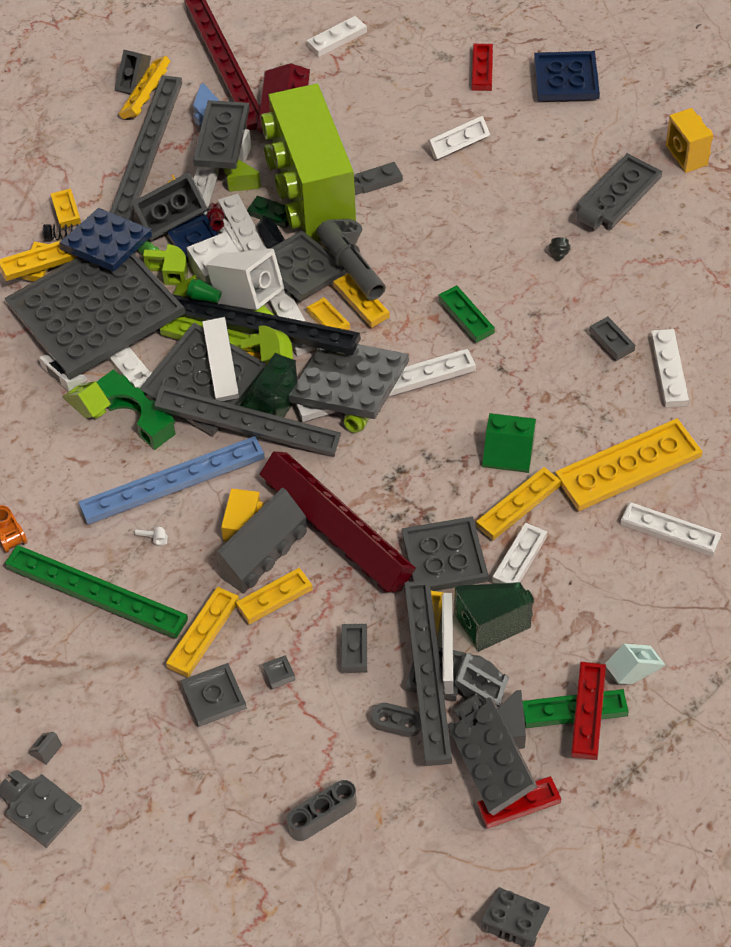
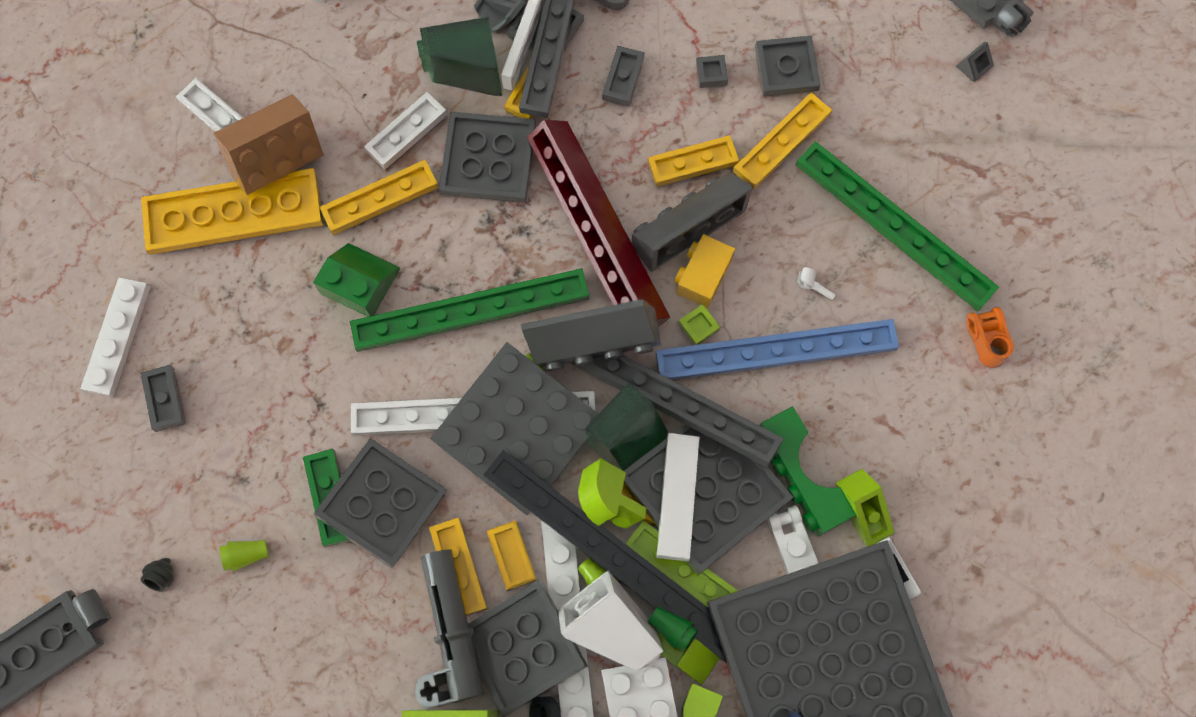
camera: 165 degrees left, 20 degrees up
(236, 479) = (699, 325): none -> lime plate
(311, 429) = (592, 334): none -> dark grey slope
(411, 448) = (469, 310): none -> green plate
(427, 314) = (380, 503): none -> dark grey plate
(509, 270) = (242, 553): none -> lime cone
(615, 495) = (269, 144): none -> medium nougat brick

